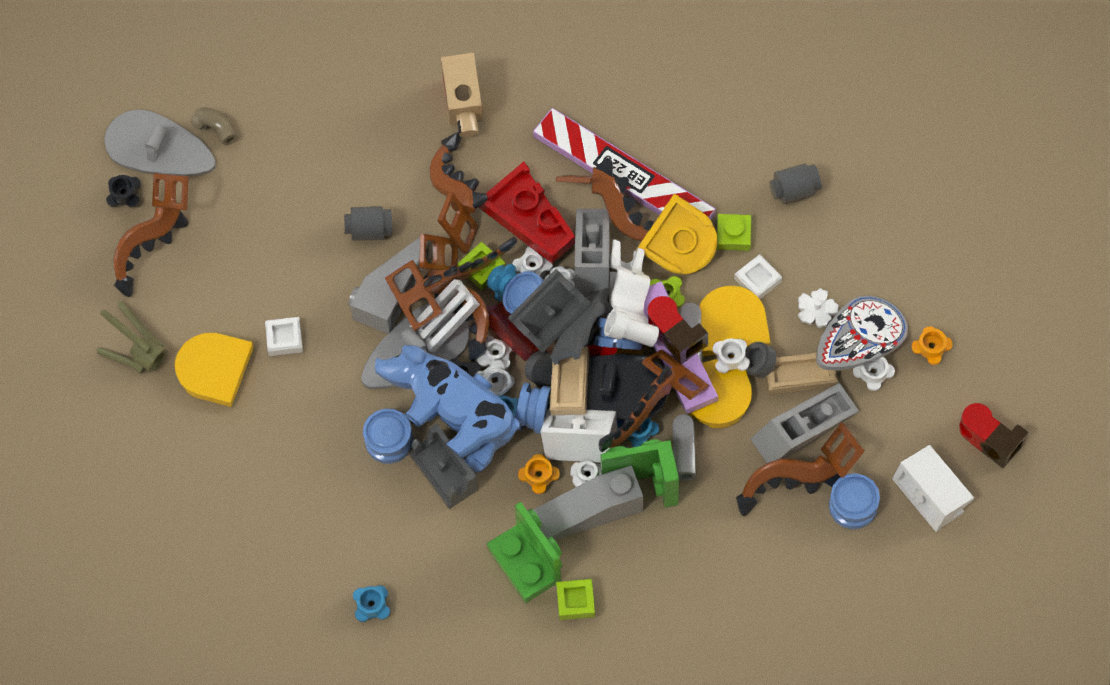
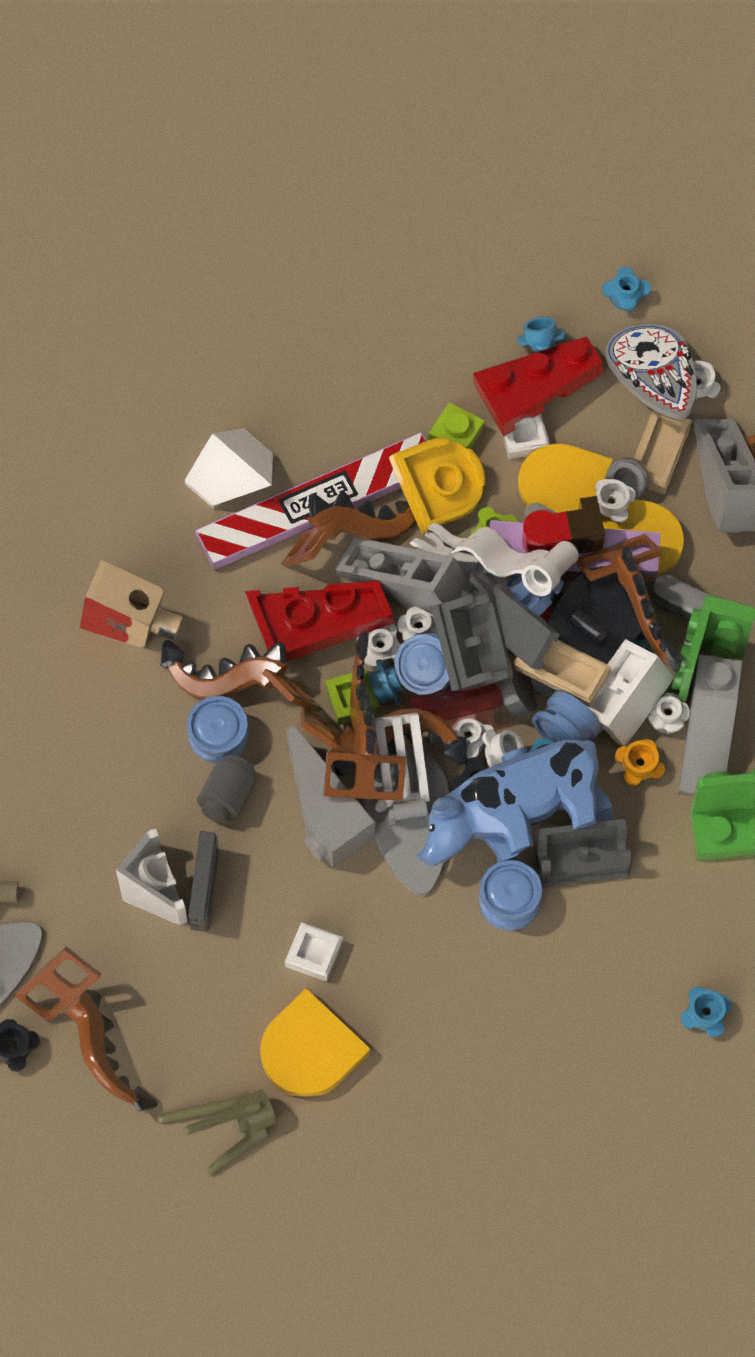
camera: 65 degrees left, 0 degrees up
(277, 208) = (148, 881): none -> white slope
(293, 242) = (204, 881): none -> dark grey tile
(410, 196) = (217, 728): none -> medium blue wheel
(617, 104) = (230, 467): none -> white slope
(795, 183) = (438, 340): dark grey brick -> none
(799, 257) = (530, 382): none -> red wing
(816, 308) = (593, 400): white plant -> none
(844, 247) = (541, 333): none -> dark azure plate
(918, 295) = (622, 298): none -> dark azure plate
(934, 336) = (698, 304): light orange plate -> none

